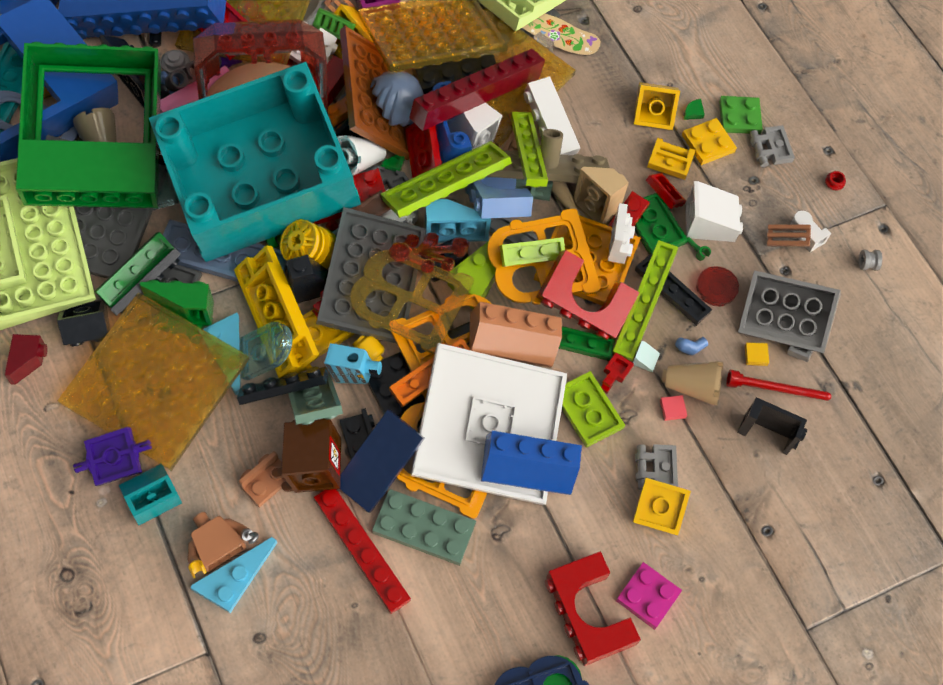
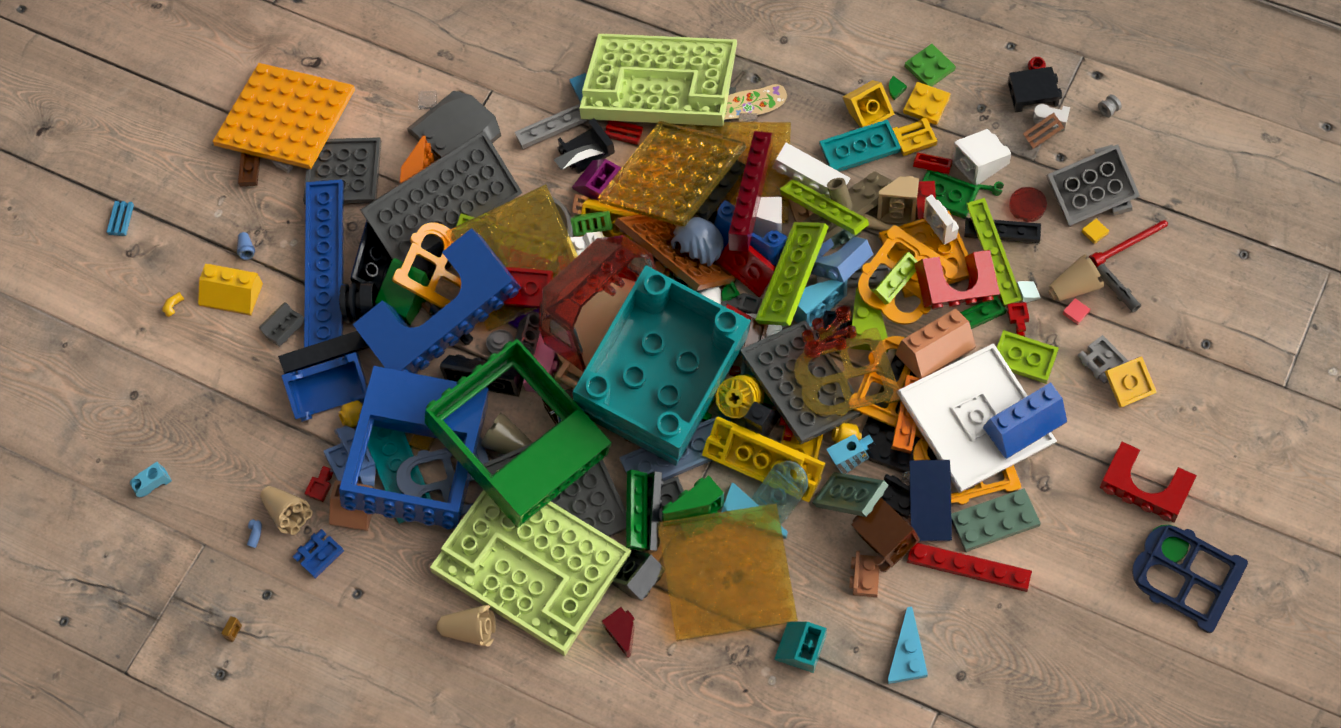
camera: 25 degrees left, 0 degrees up
(112, 456) = (753, 643): dark purple plate -> none
(216, 542) = (877, 638): nougat torso -> none
(289, 383) = (817, 505): black plate -> none
(616, 132) = (860, 146): none -> teal plate
(649, 595) = (1173, 445): dark pink plate -> none
(690, 347) = (1049, 261): medium blue arm -> none
(730, 440) = (1123, 293): none -> dark grey pin
(776, 420) = (1149, 266): black panel -> none
(777, 143) = (975, 69): light grey plate -> none
(815, 195) = (1034, 87): none -> black panel

